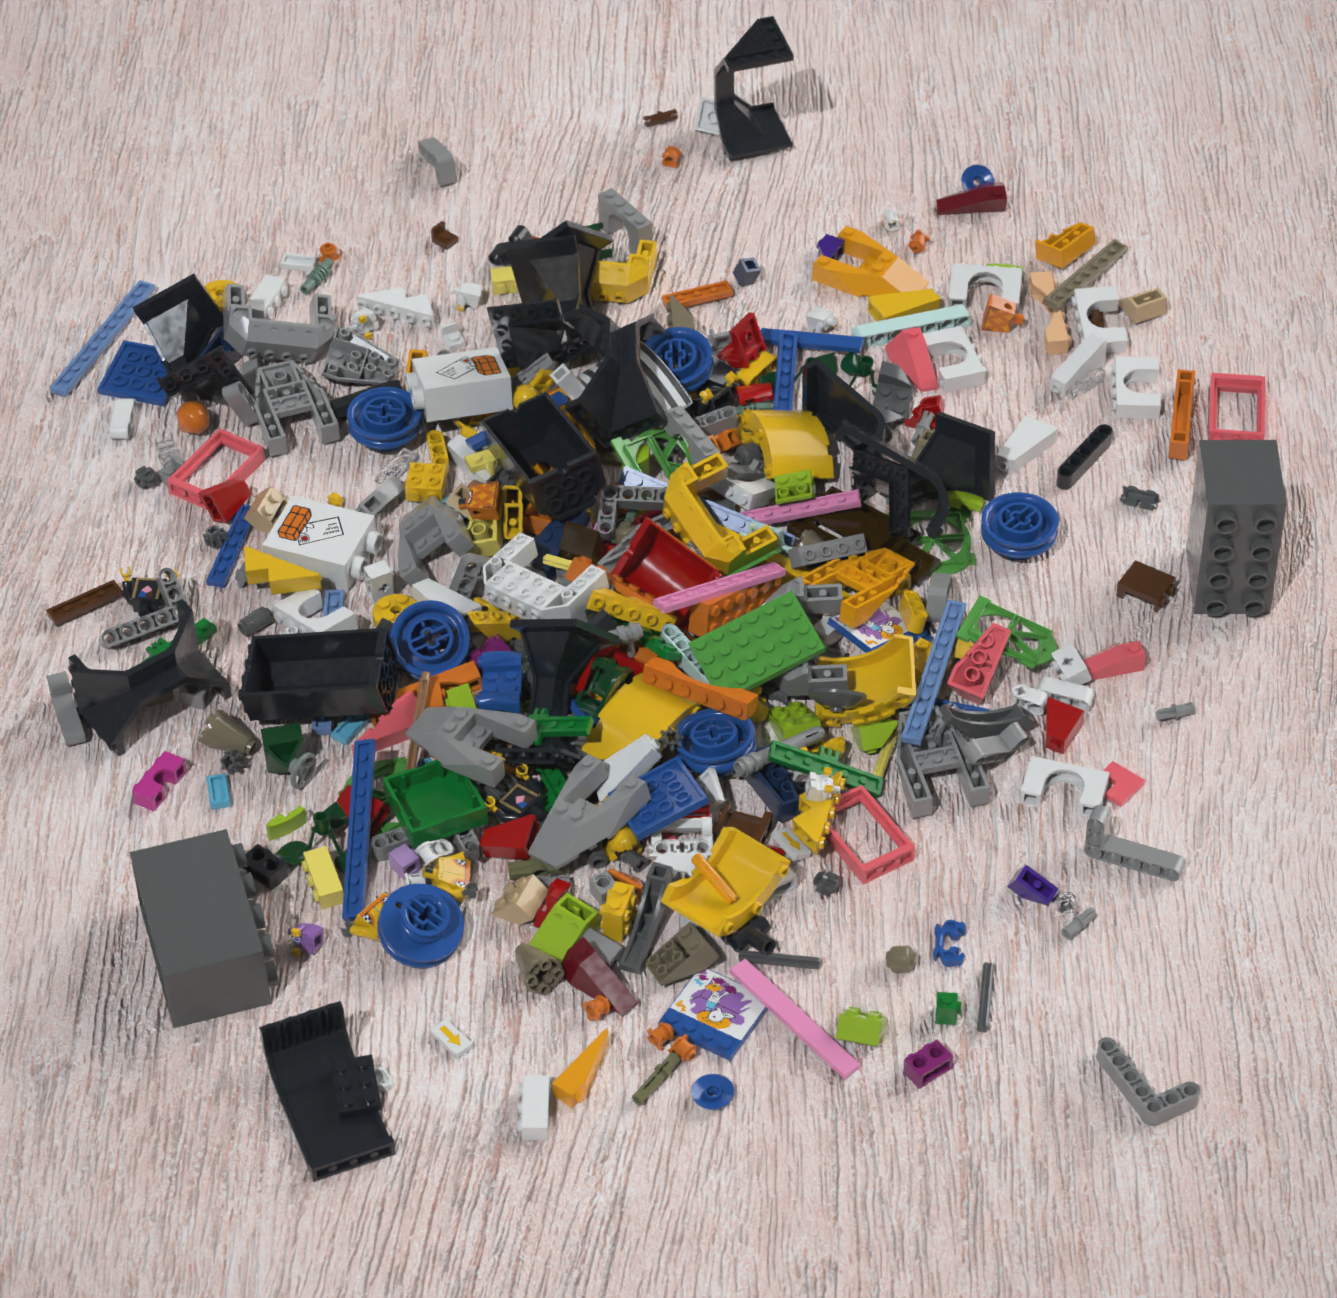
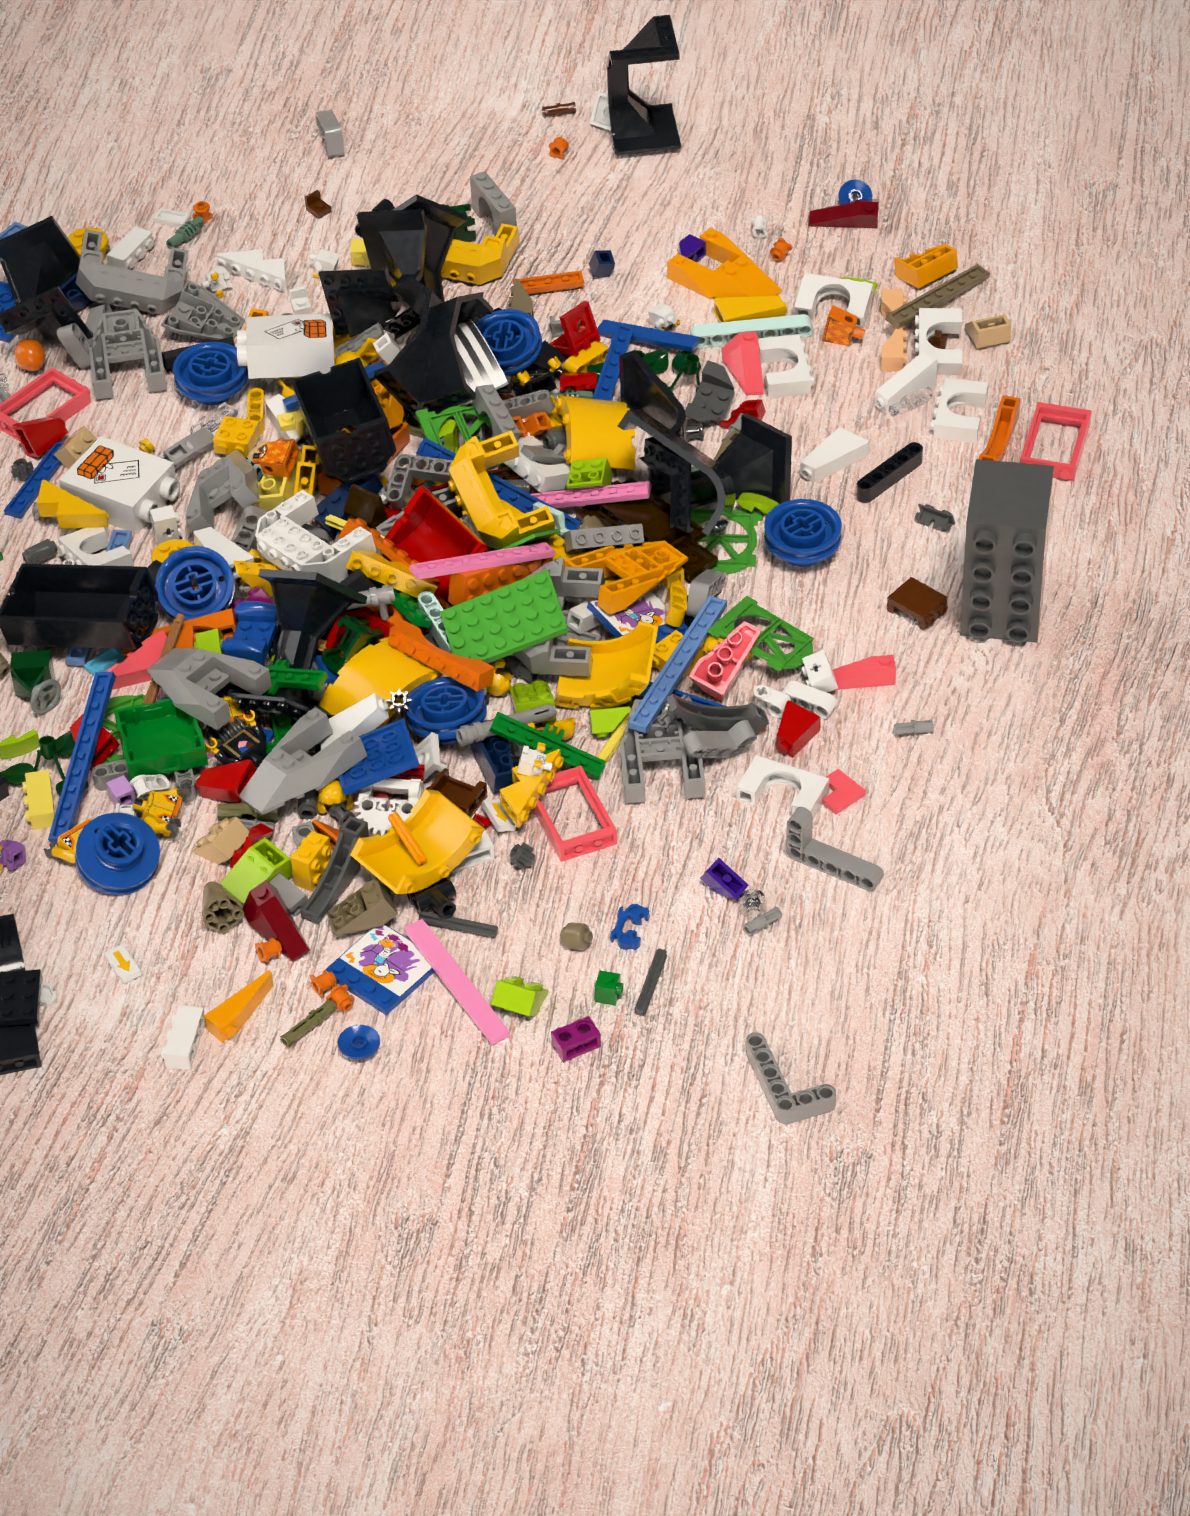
camera: 10 degrees right, 0 degrees up
(837, 698) = (574, 679): dark grey dish -> none

